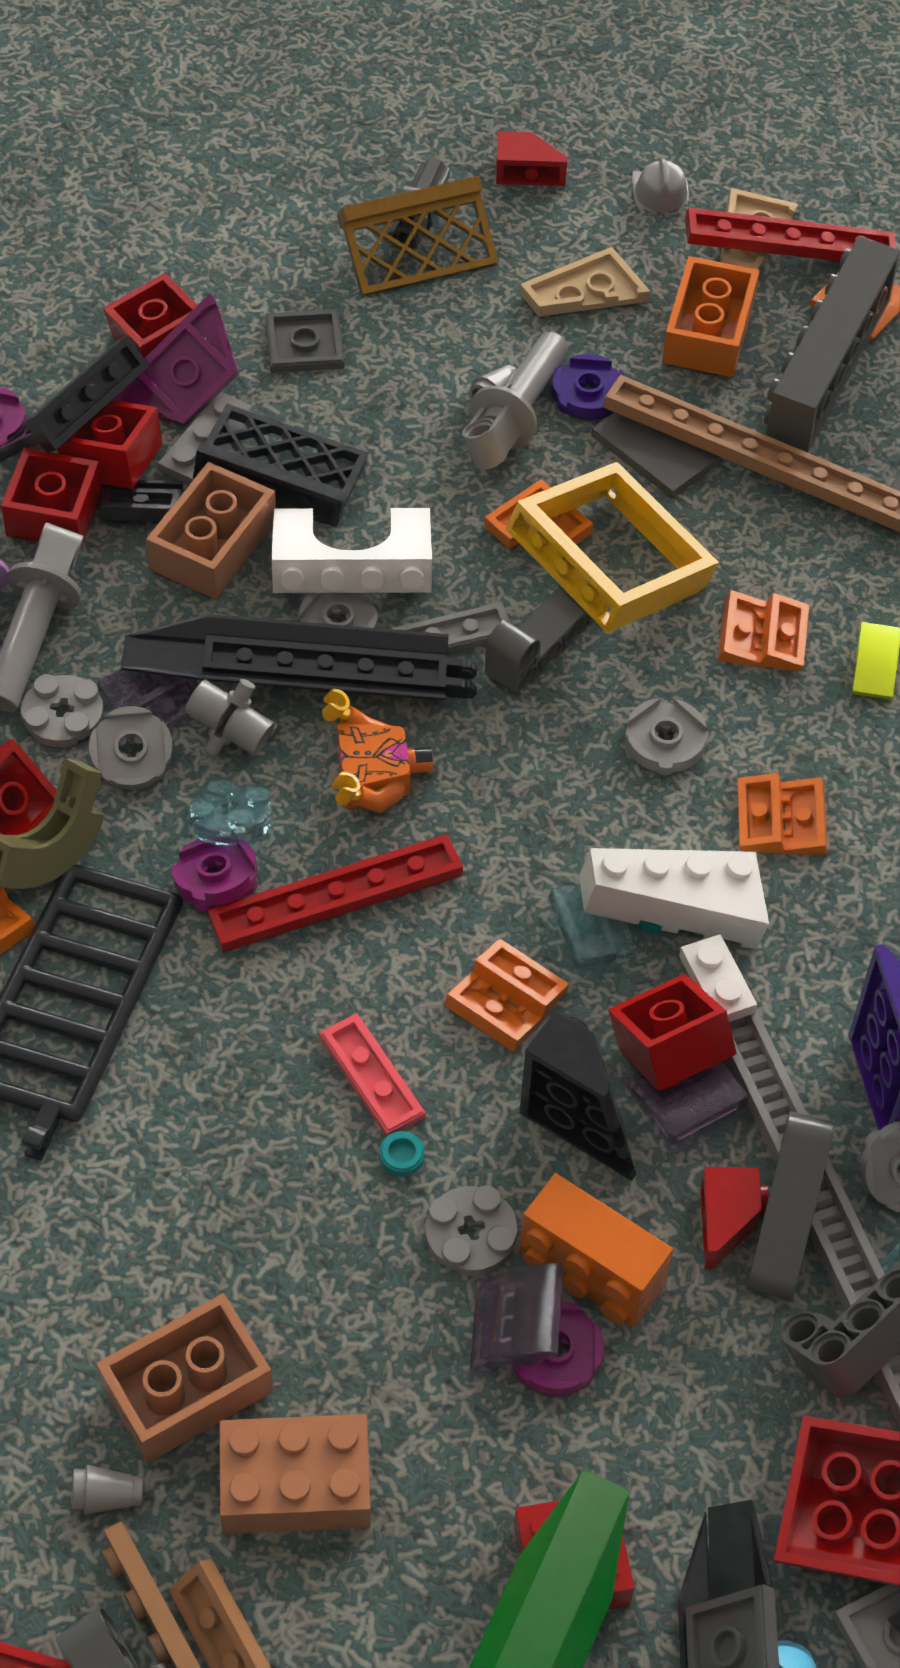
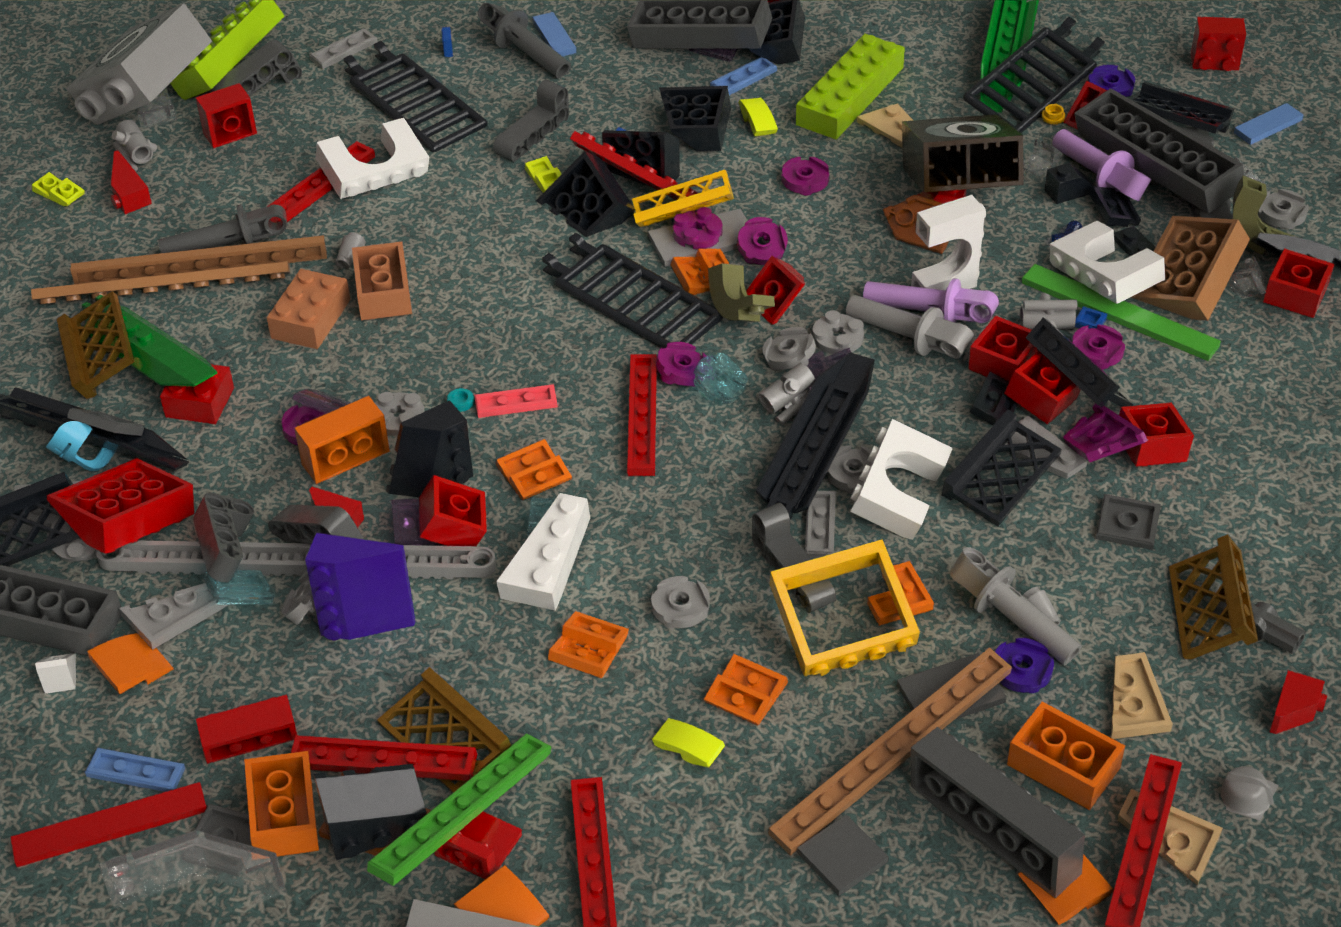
camera: 115 degrees right, 10 degrees down
(211, 530) = (947, 415): nougat brick -> none
(371, 757) = (727, 449): orange torso -> none
(716, 972) = (476, 551): white plate -> none

